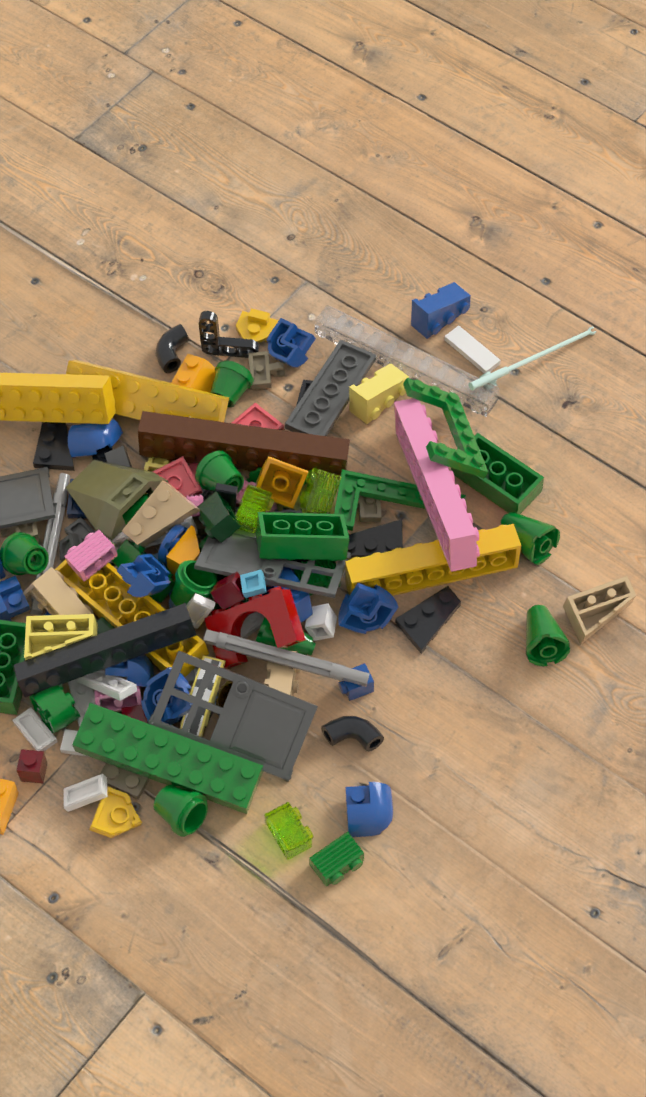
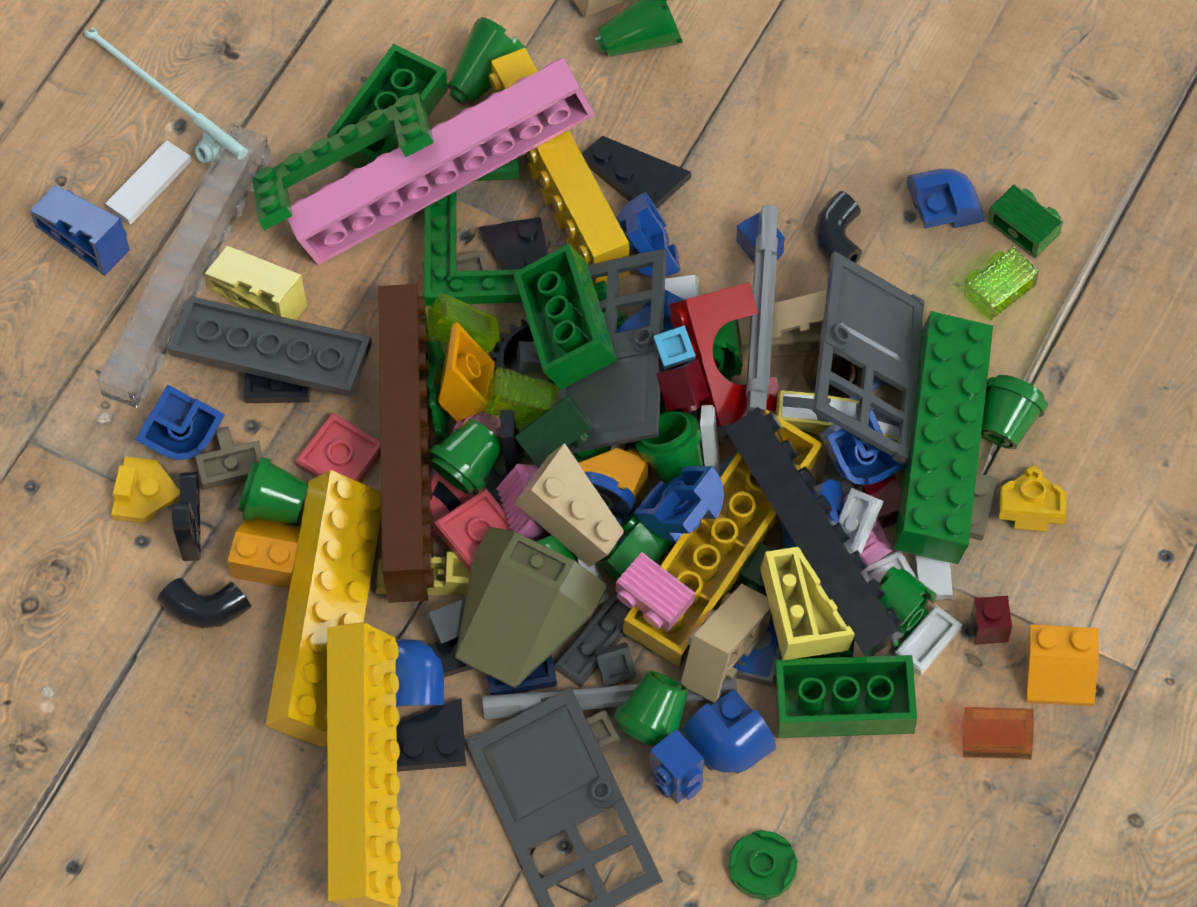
camera: 100 degrees left, 5 degrees up
(85, 792) = (1013, 539): white tile -> none

